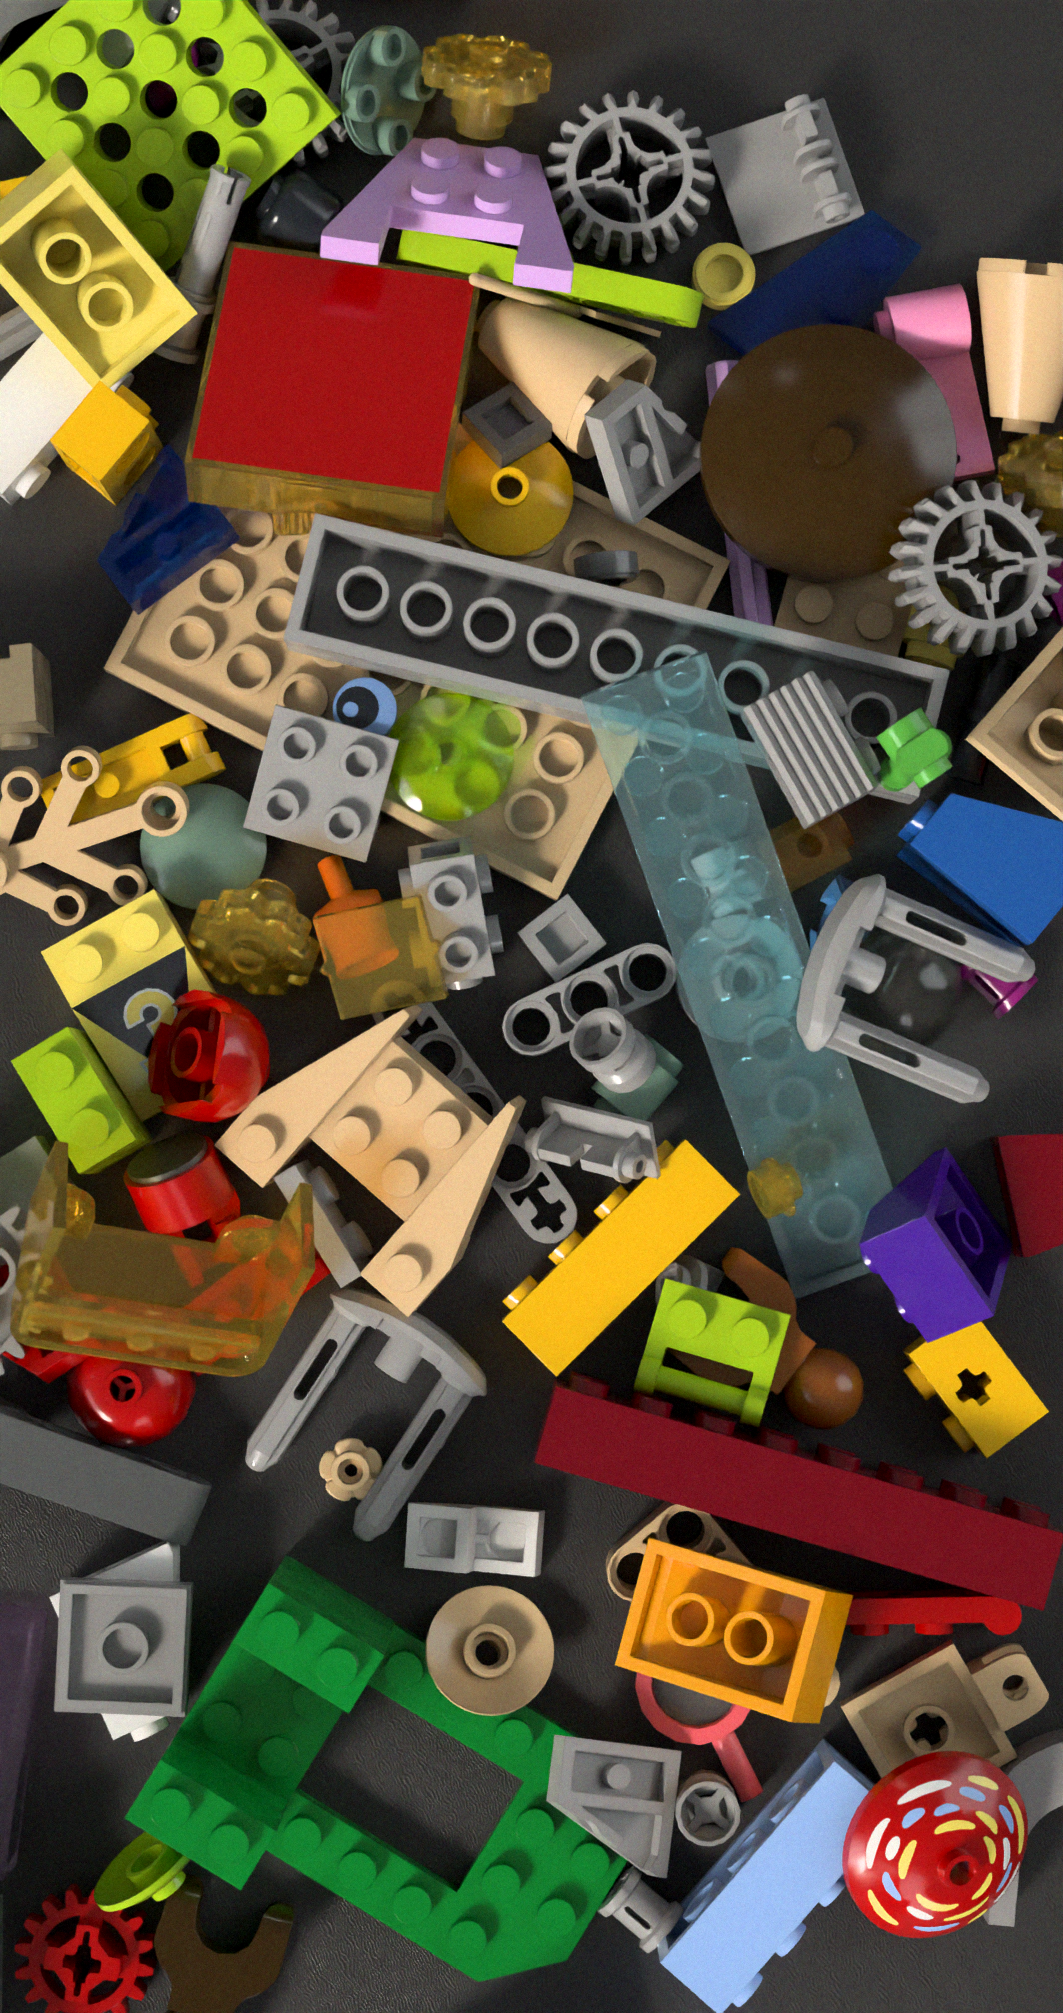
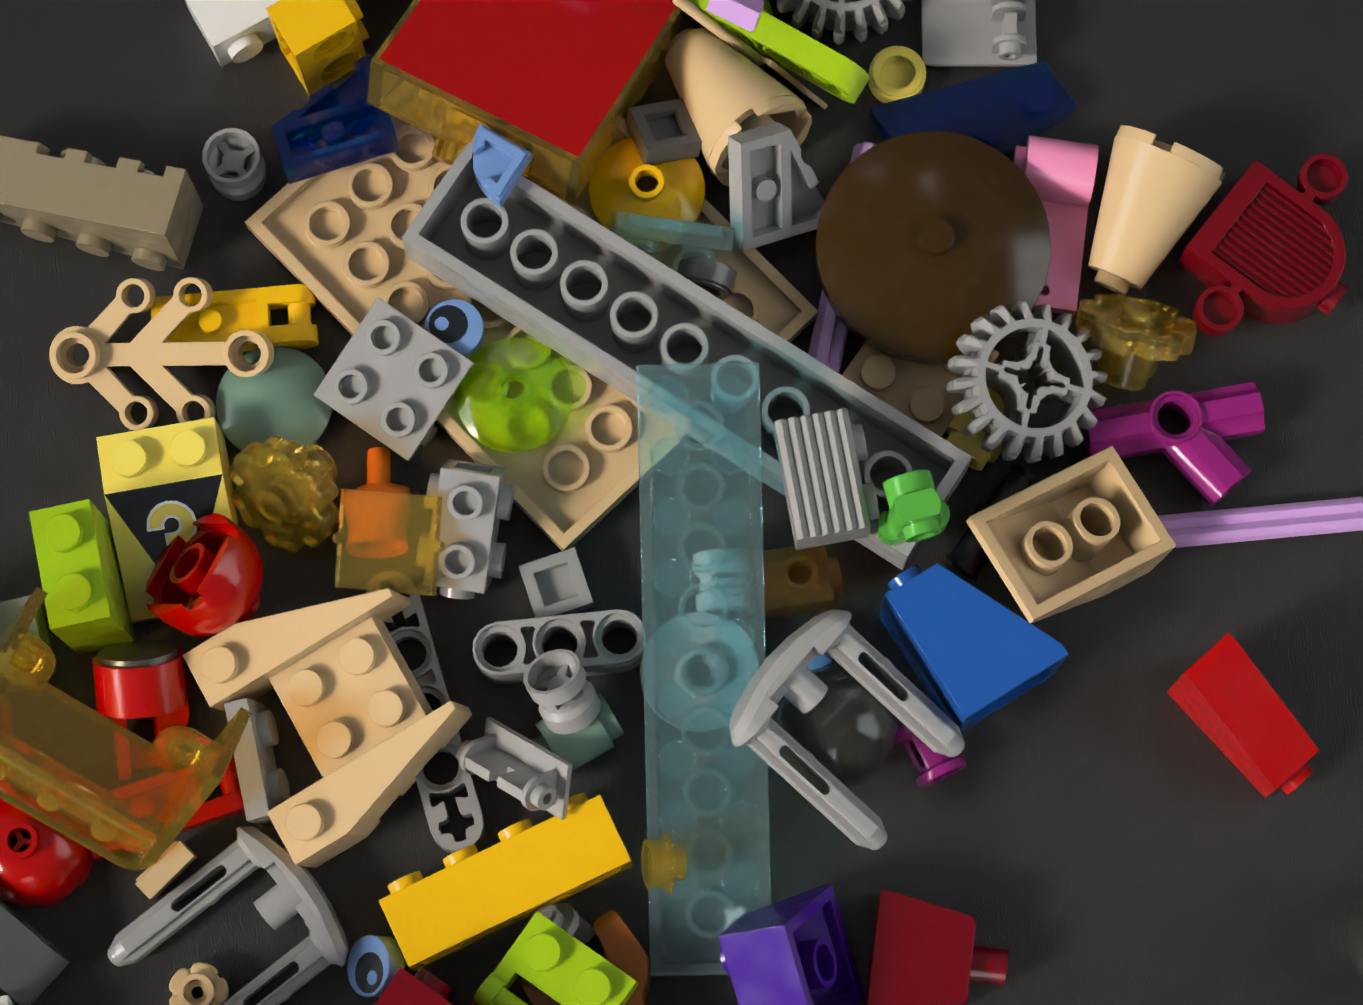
camera: 20 degrees right, 10 degrees down
(60, 600) = (230, 152): none -> light grey wheel
(270, 1376) = (166, 869): none -> tan tile
(355, 527) = (497, 164): none -> medium blue tile
(519, 1383) = (374, 964): none -> medium blue tile
(581, 530) = (695, 238): none -> clear light blue plate

